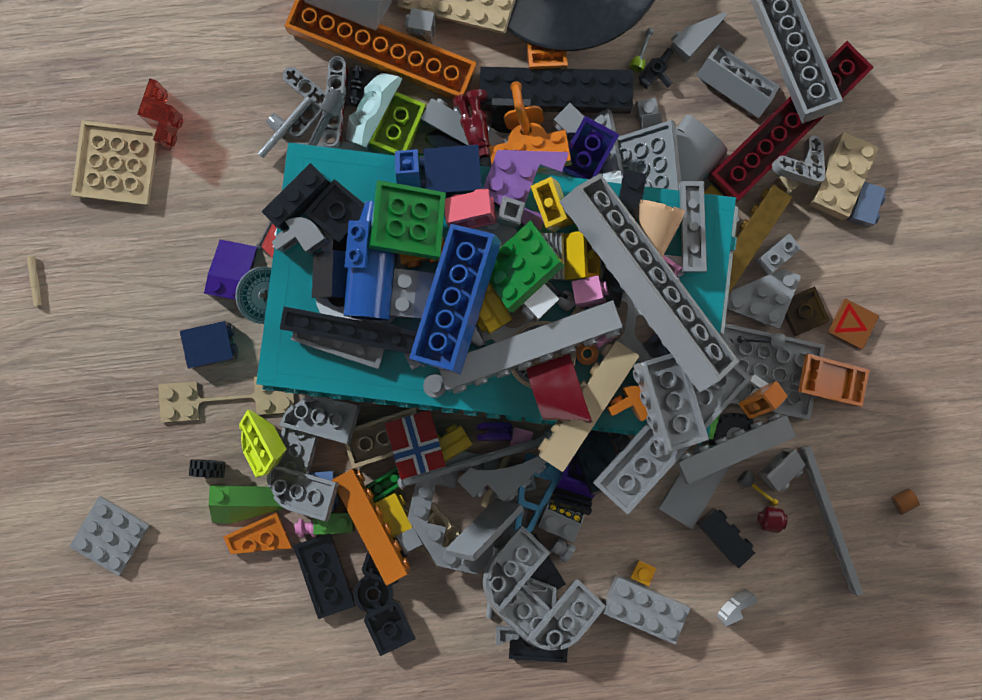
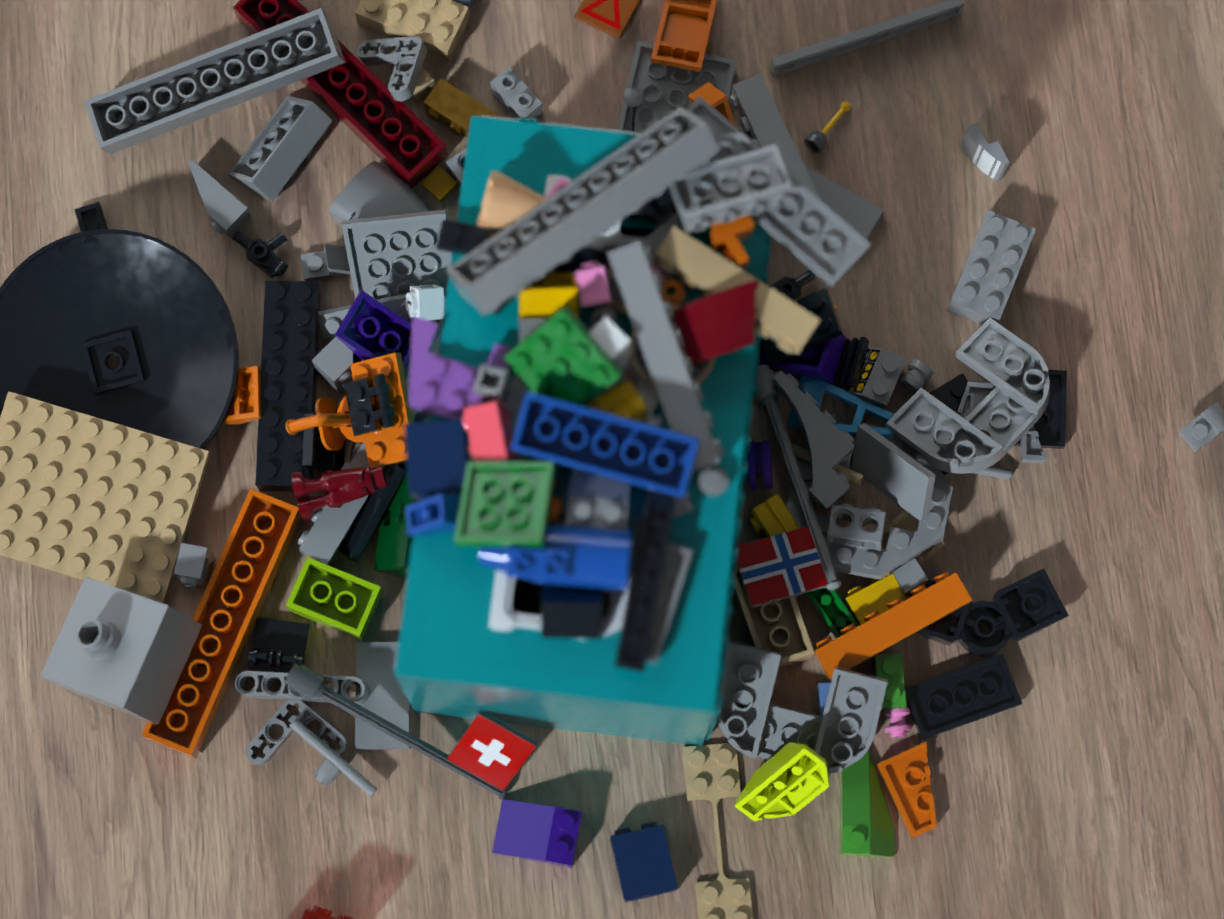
camera: 85 degrees left, 10 degrees down
(207, 468) = (818, 859): black tyre -> none
(248, 294) = (592, 780): piece -> none
(296, 197) = (470, 655): black brick -> none
(301, 231) = (513, 646): light grey brick -> none
(334, 210) = (488, 605): black plate -> none
(371, 108) = (311, 632): light aqua slope -> none
(439, 500) = (855, 534): none -> light grey brick
(520, 436) = (765, 431): bright pink plate -> none
(533, 139) = (363, 405): none -> black plate
(547, 196) = (482, 332): yellow brick -> none
(638, 63) = (251, 277): hinge -> none
(643, 572) = (943, 273): light orange plate -> none
(693, 227) = (513, 163): light grey plate -> none
(726, 537) = (893, 166): black brick -> none
(765, 298) = (574, 102): light grey plate -> none
(772, 519) = (868, 107): dark red head -> none
(782, 469) = (802, 95): light grey slope -> none
(806, 312) = (591, 66): dark brown tile -> none

